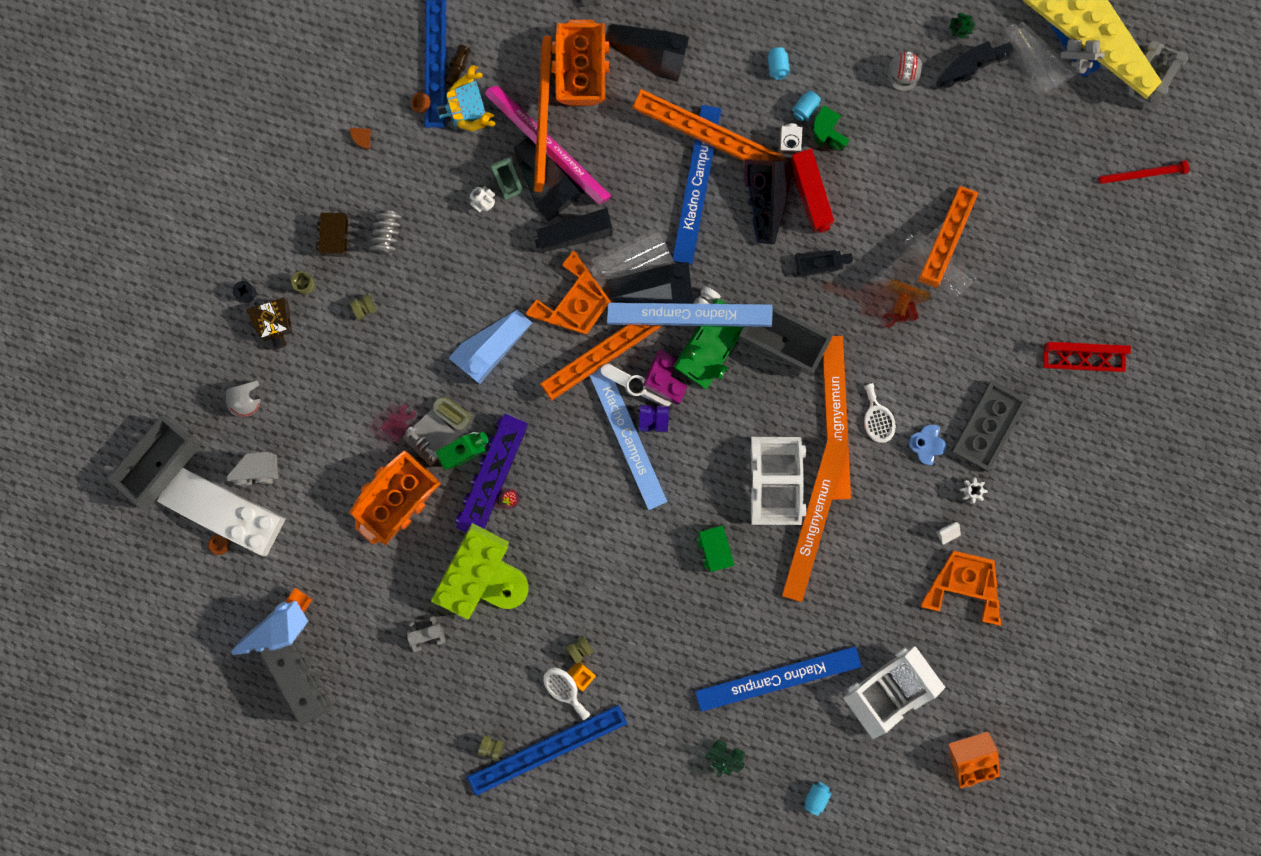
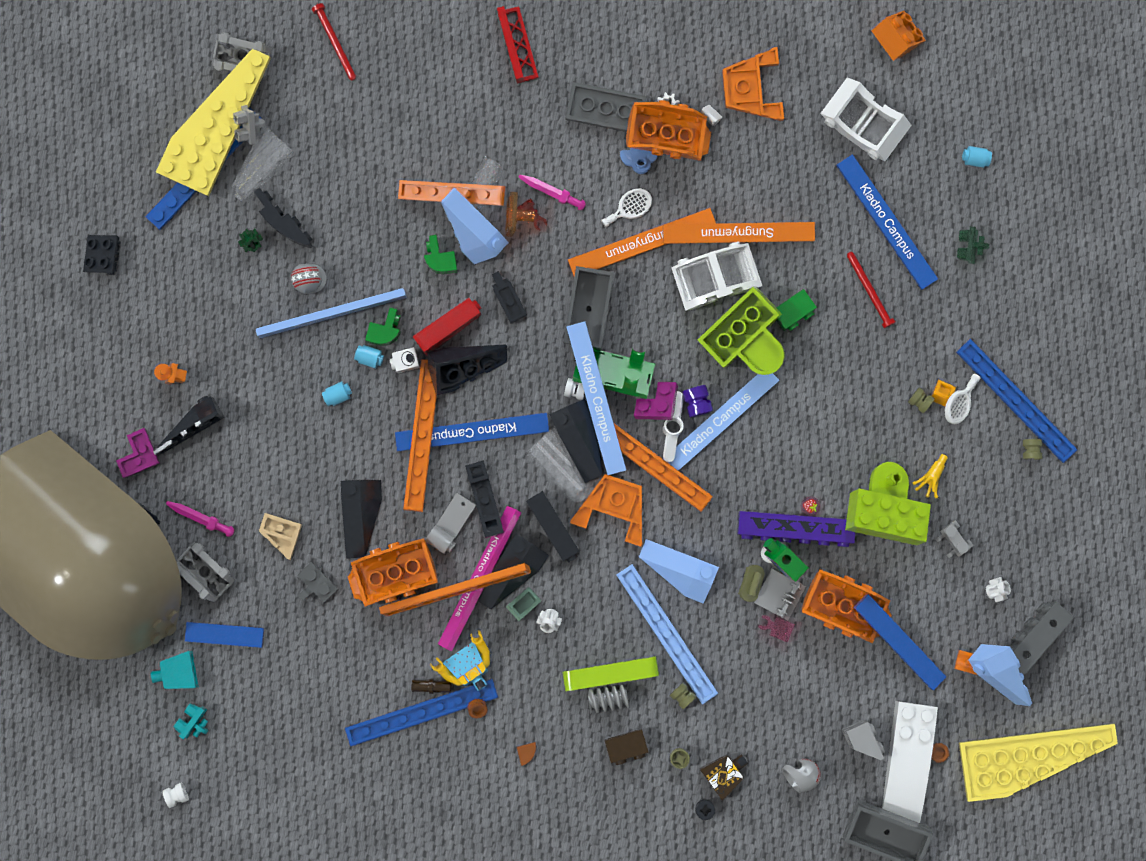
camera: 105 degrees left, 0 degrees up
(181, 617) = (1012, 763): none -> light yellow wing
(341, 540) = (899, 642): none -> blue tile
(359, 661) = (998, 589): none -> white gear
(408, 243) = (610, 673): none -> lime beam
(430, 312) = (667, 634): none -> light blue tile
(497, 634) = (932, 476): none -> yellow piece
(610, 133) = (450, 524): none -> light grey door
(624, 175) = (484, 499): none -> black slope
(705, 486) = (746, 334): none -> lime brick
(711, 636) = (870, 290): none -> red bar
(862, 82) = (331, 313): none -> light blue tile
(881, 203) = (439, 262): none -> green brick
(901, 245) = (476, 235): none -> light blue wedge
(909, 353) = (563, 196): none -> dark pink sword
(944, 480) = (668, 130): none -> orange slope

